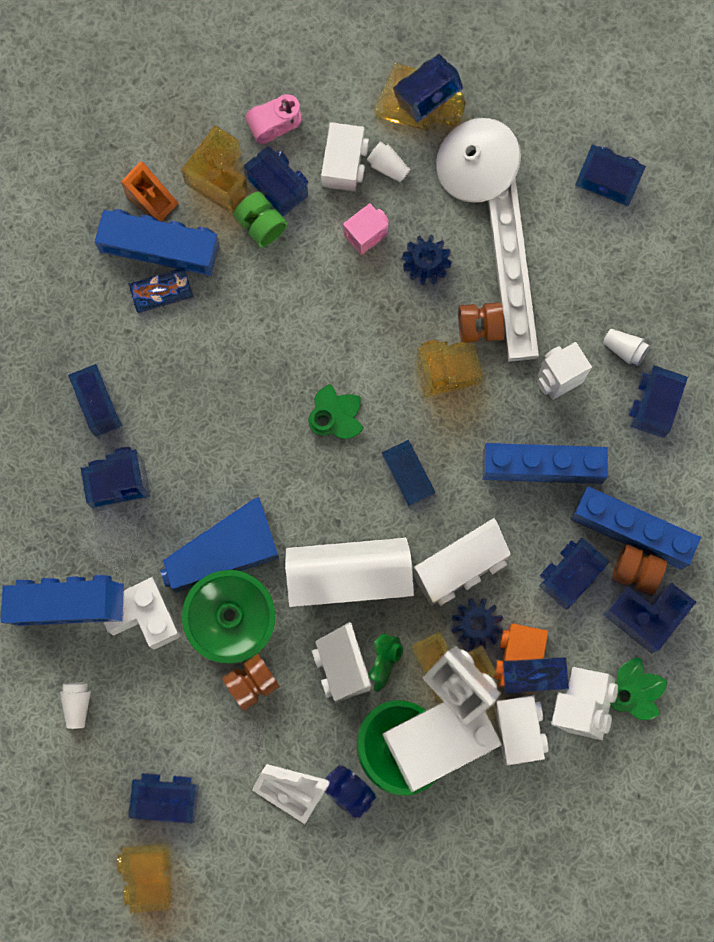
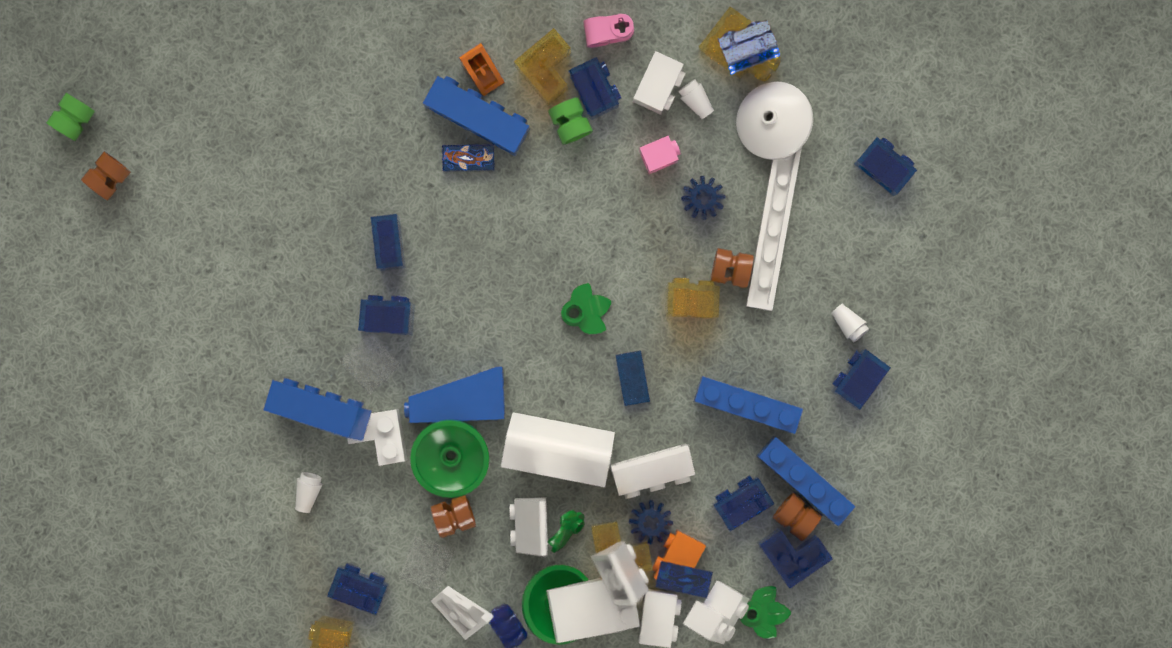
camera: 15 degrees right, 10 degrees up
(563, 370) = (786, 331): white brick -> none

